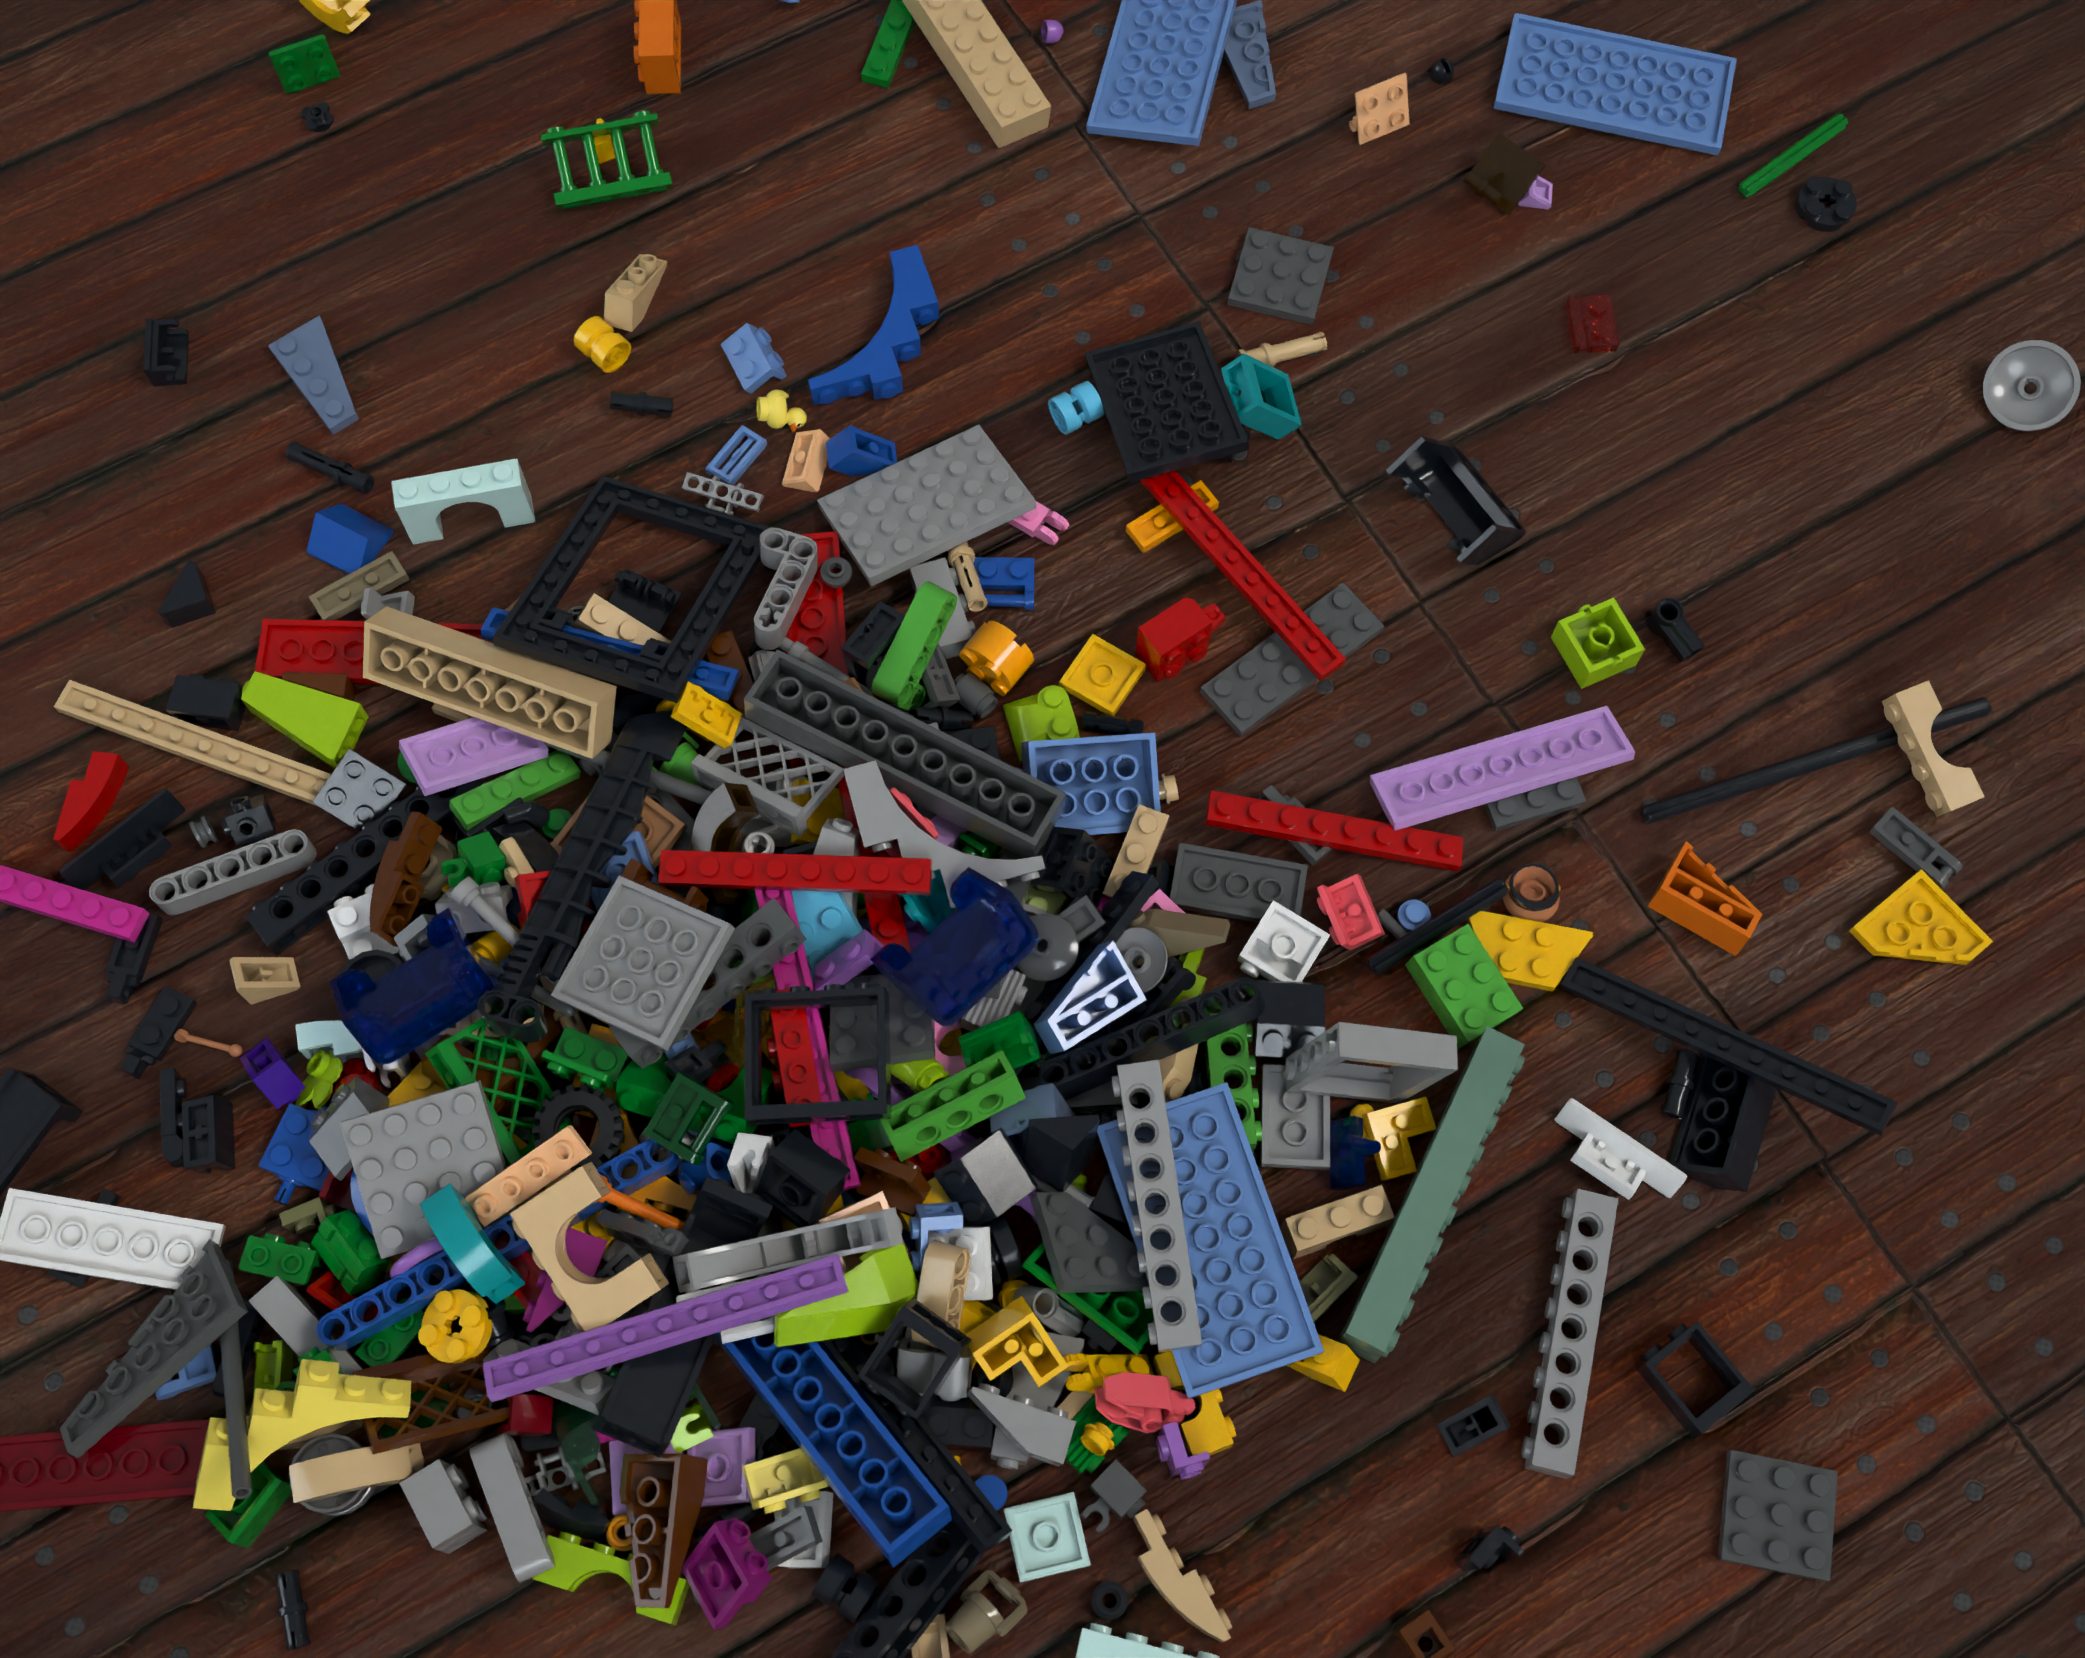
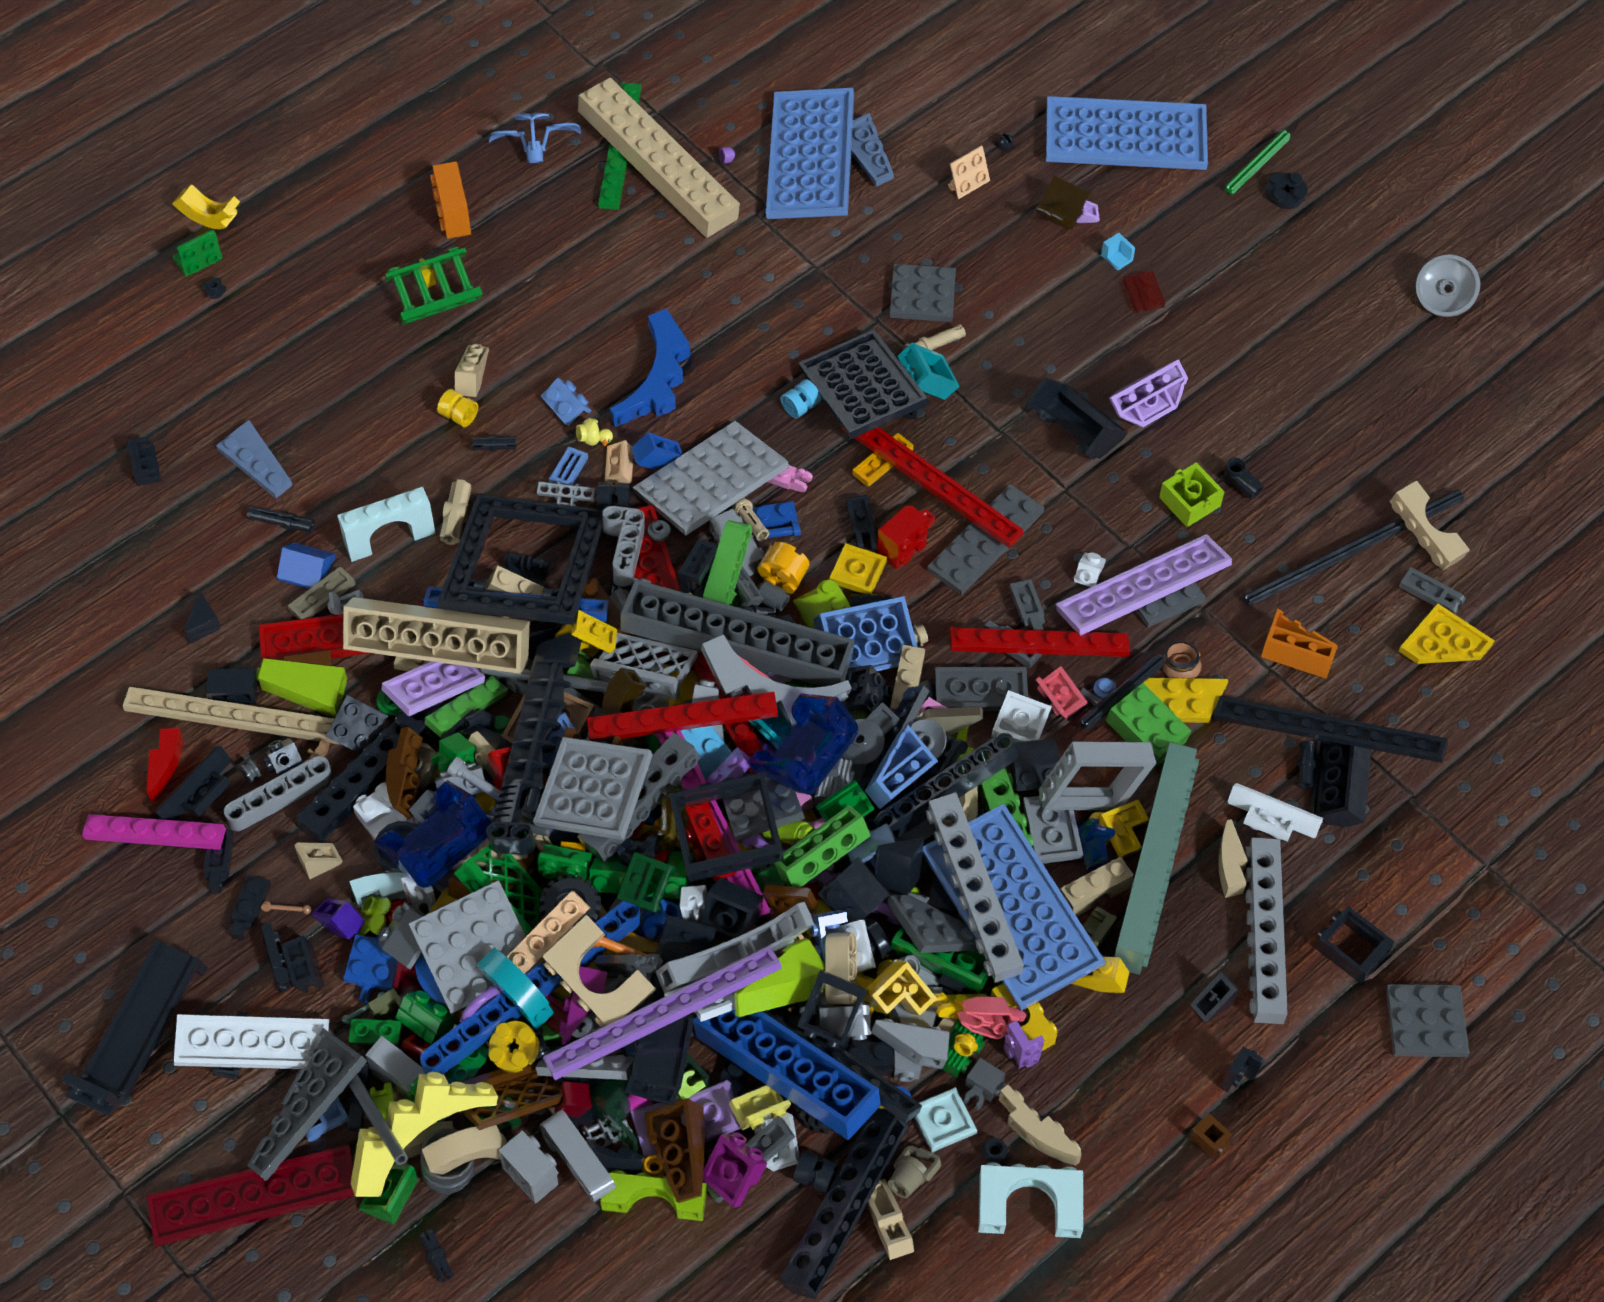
camera: 10 degrees left, 10 degrees down
(252, 1224) = (346, 1019): none -> sand green hinge
(304, 820) = (321, 750): none -> medium nougat piece
(566, 495) = (455, 512): none -> tan piece
(785, 509) = (605, 494): none -> black wheel
(1123, 602) = (861, 520): none -> black hinge
(1330, 769) = (1027, 604): none -> dark grey hinge
(1429, 730) = (1089, 569): none -> white bracket
(1541, 1215) = (1231, 862): none -> tan slope
(1567, 258) = (1118, 251): none -> medium azure panel
(1569, 482) = (1151, 395): none -> lavender wedge

